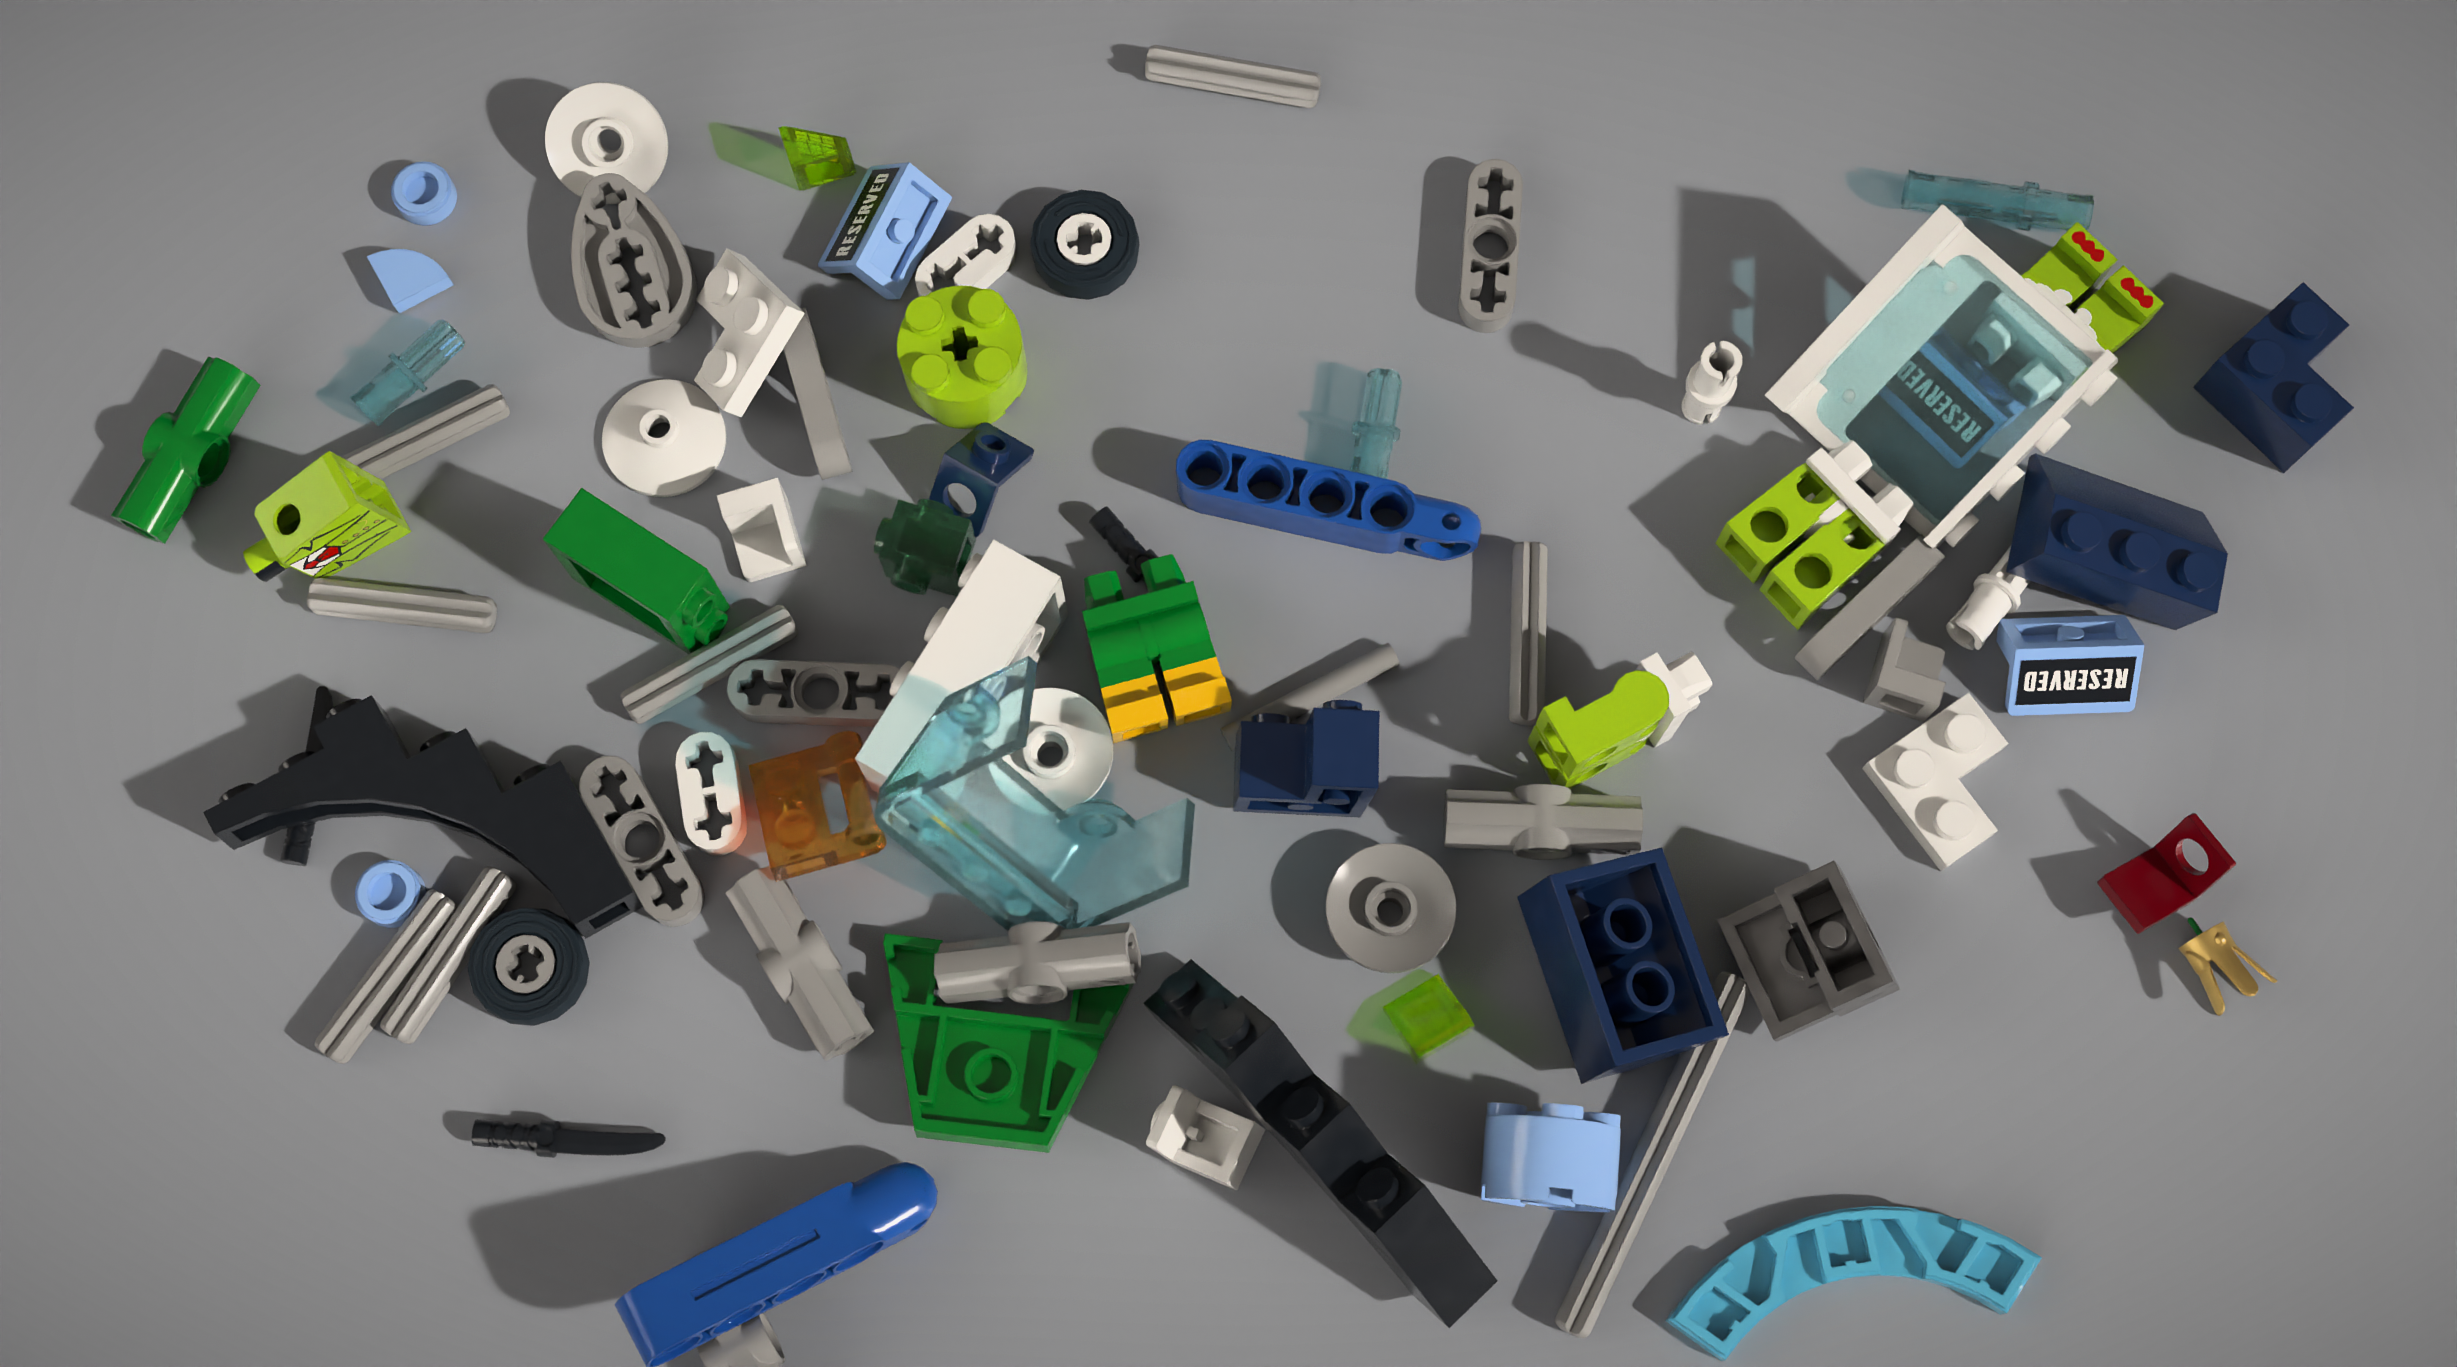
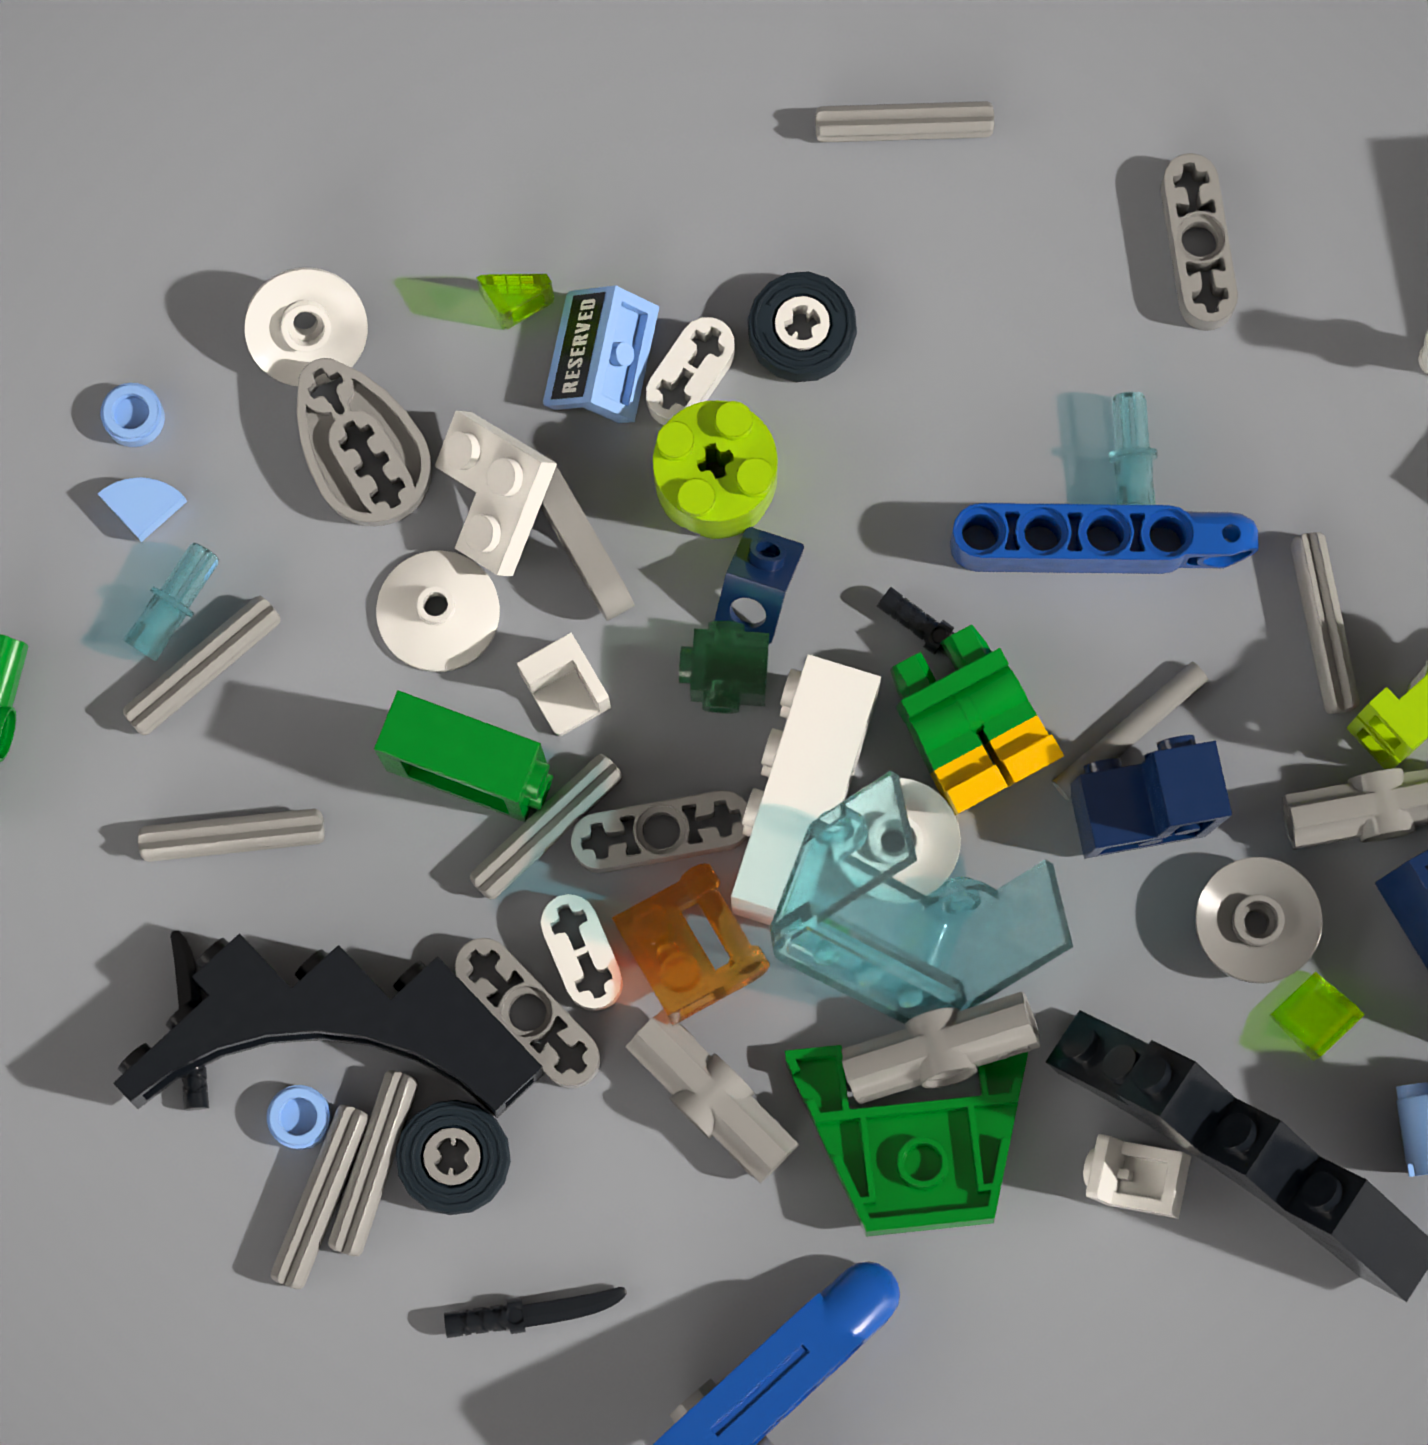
camera: 10 degrees left, 5 degrees up
(324, 521) = (155, 758): lime torso -> none

